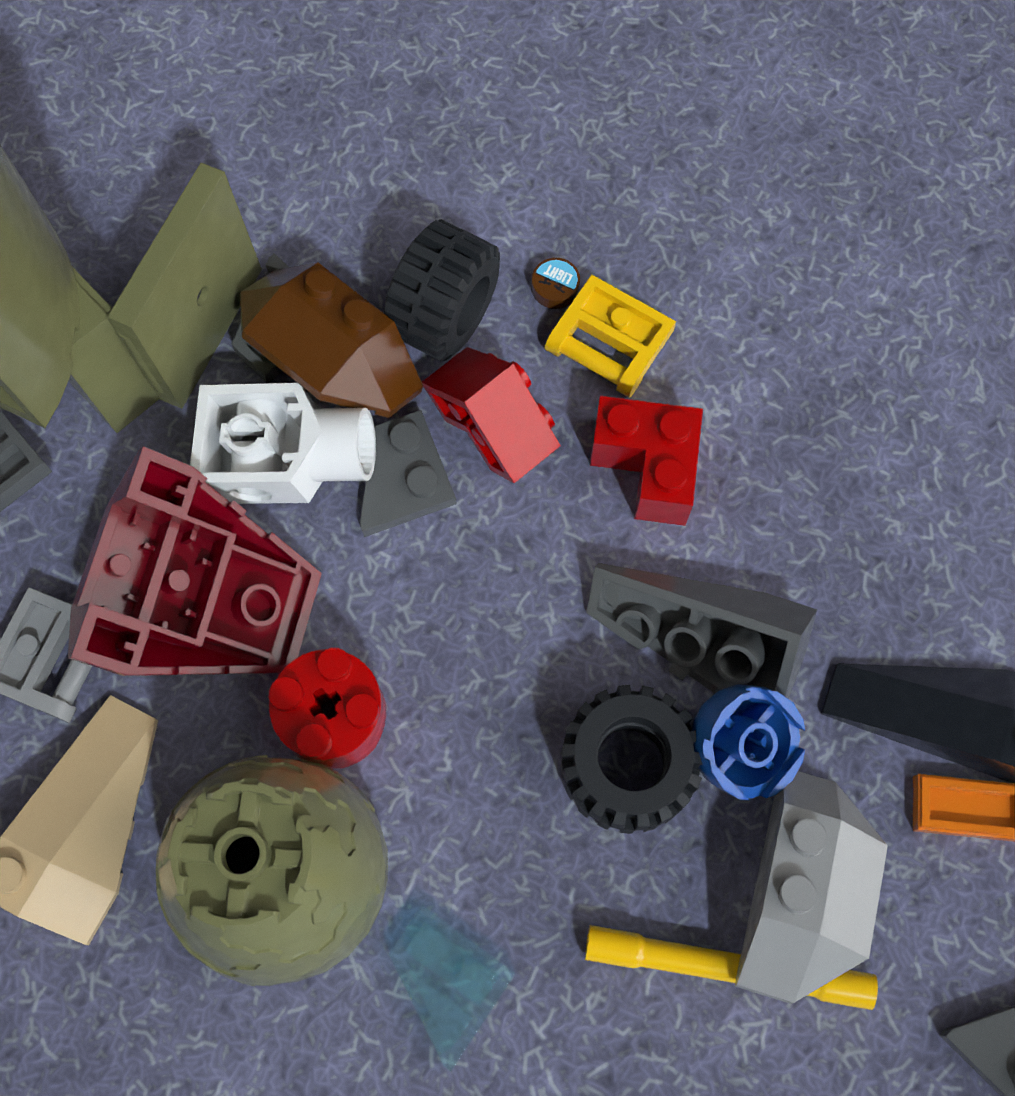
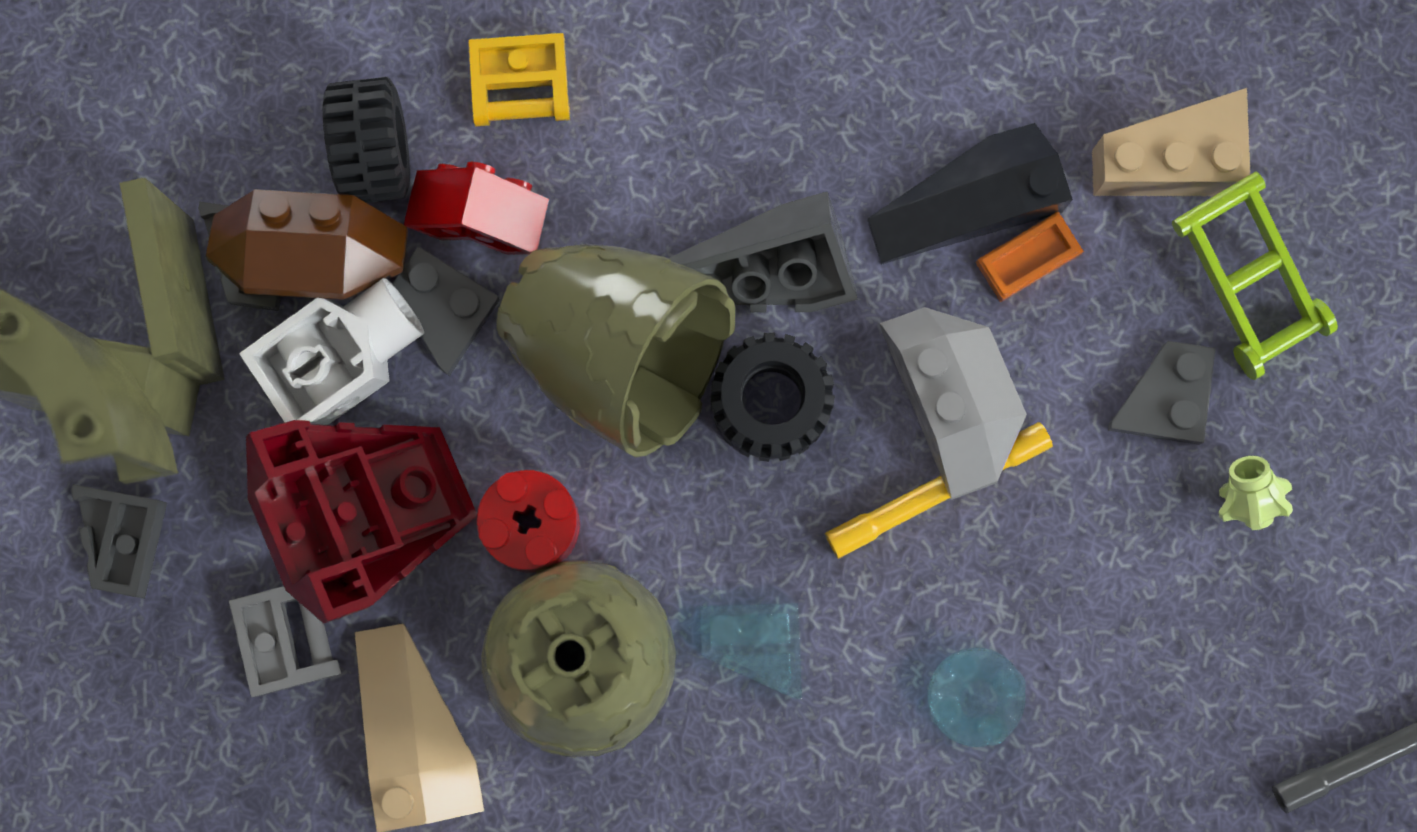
camera: 40 degrees left, 10 degrees up
(528, 604) = (617, 339): none -> olive piece
(555, 283) = (442, 64): tile -> none
(660, 445) = (623, 144): red brick -> none
(749, 741) = (845, 324): blue cylinder -> none

